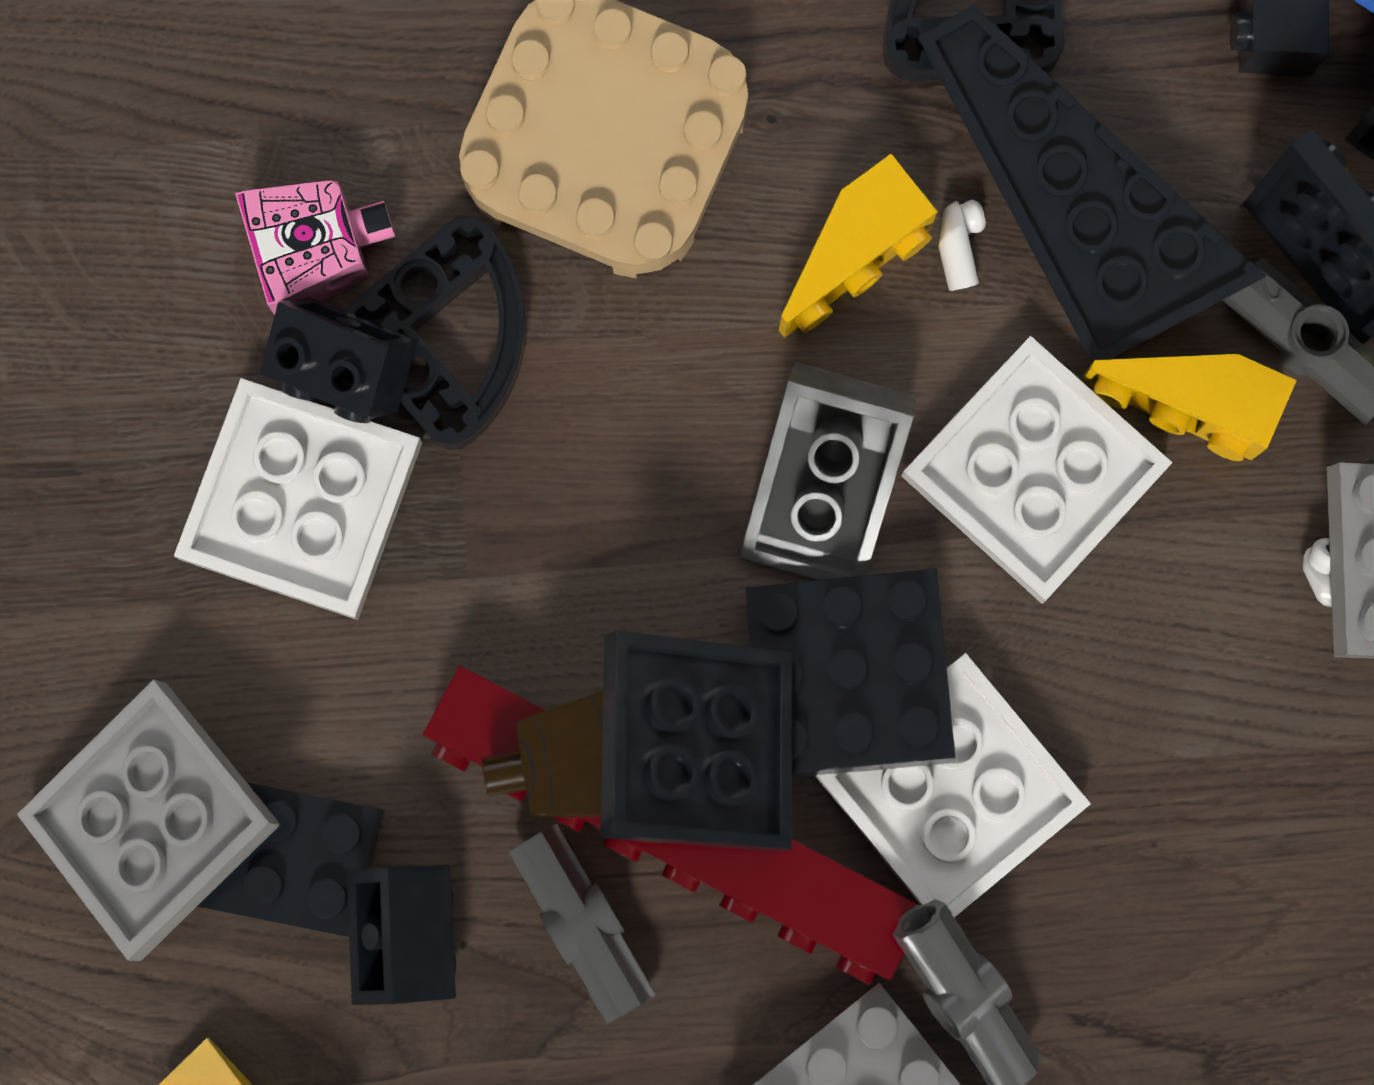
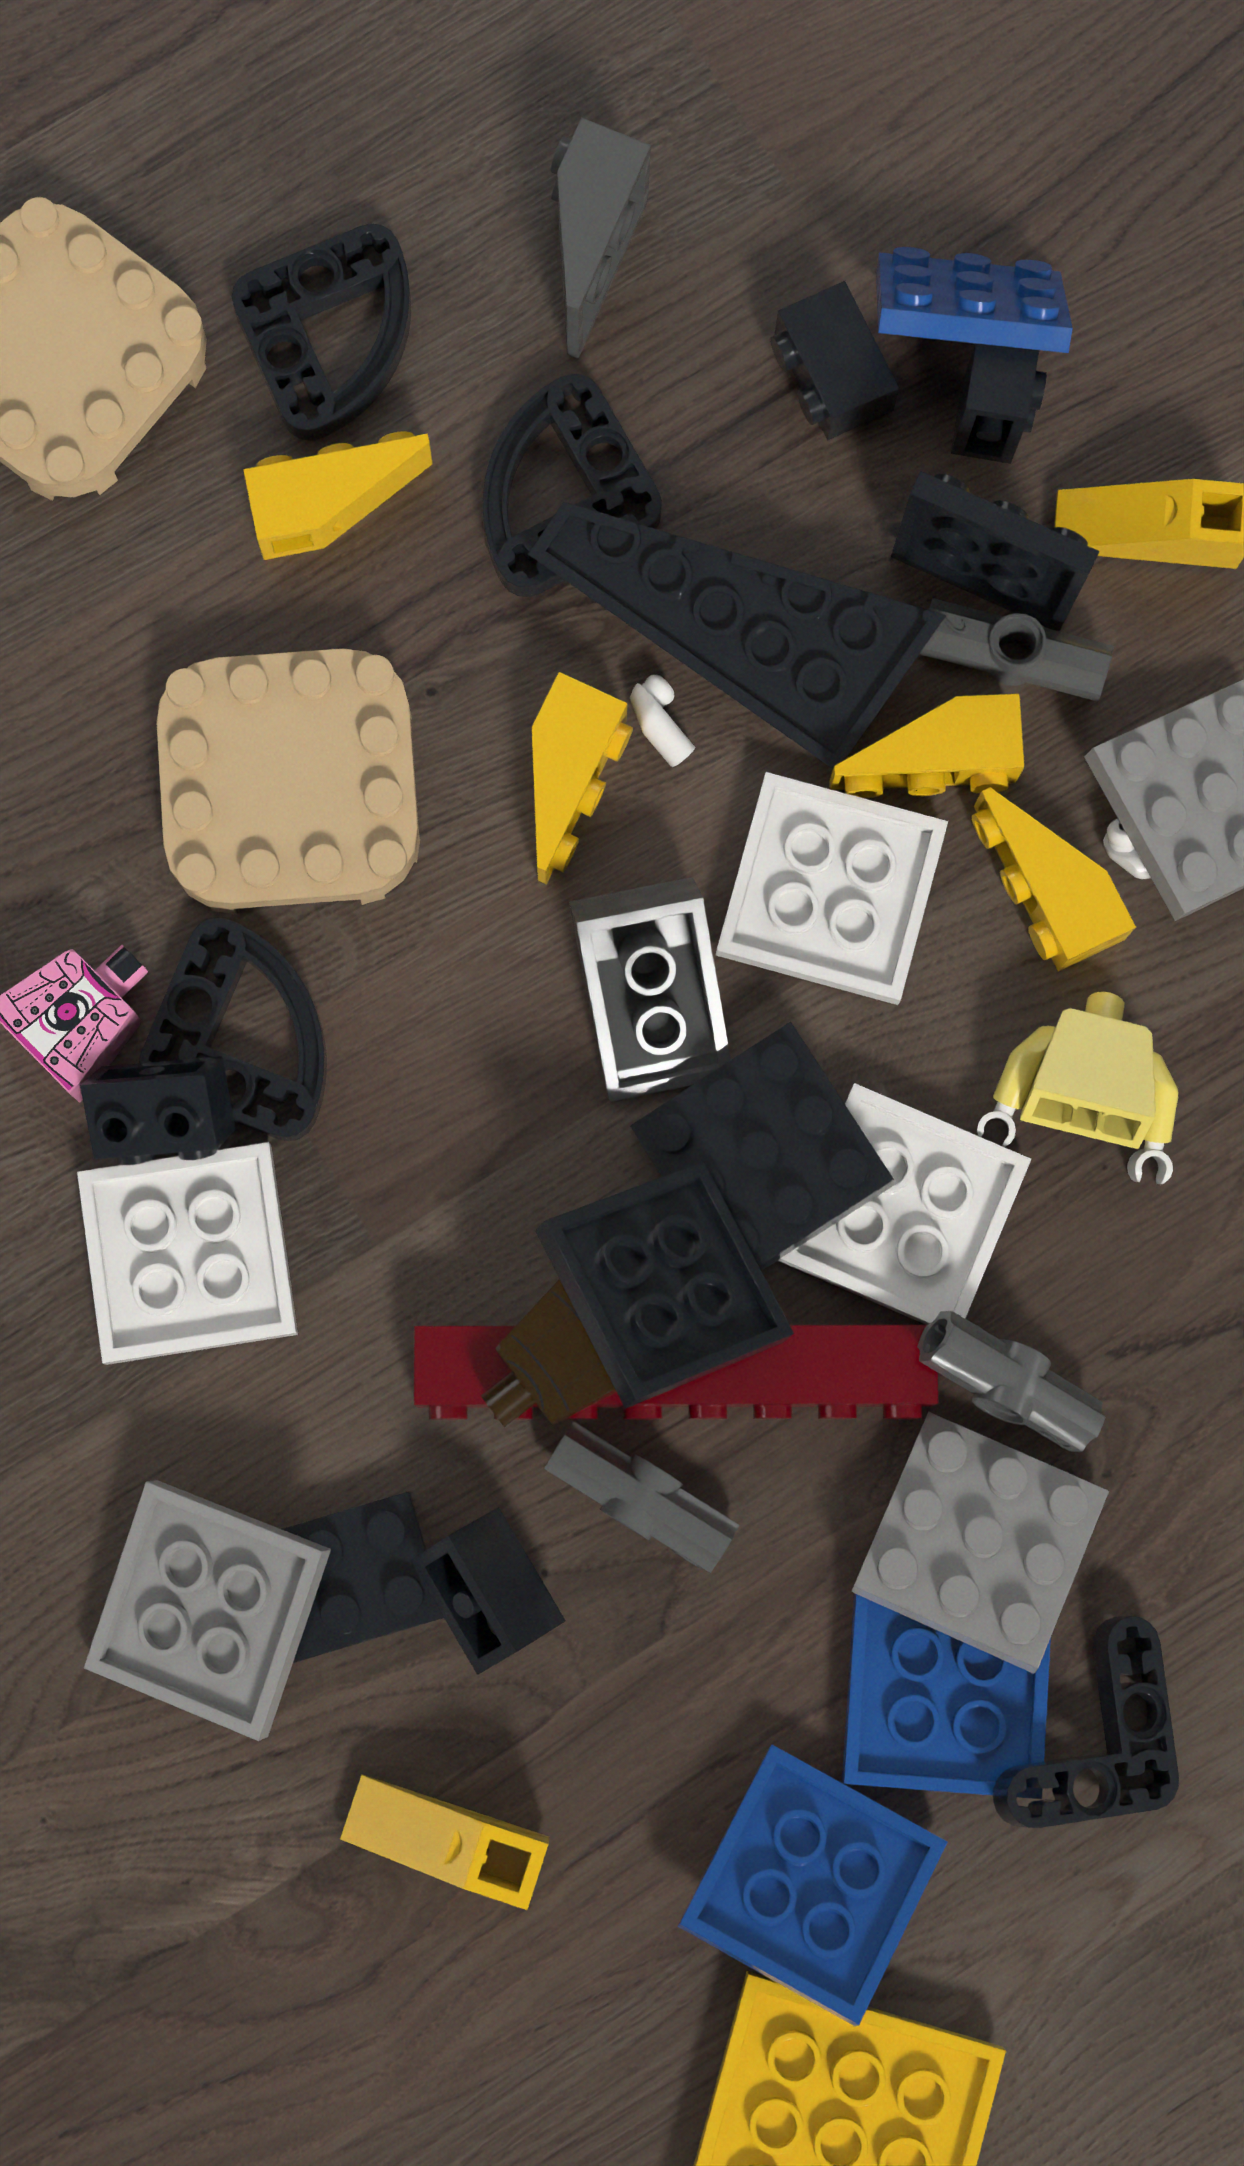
camera: 30 degrees left, 0 degrees up
(1185, 763) = (1092, 1081): none -> light yellow torso
(1245, 577) = (1062, 889): none -> yellow slope

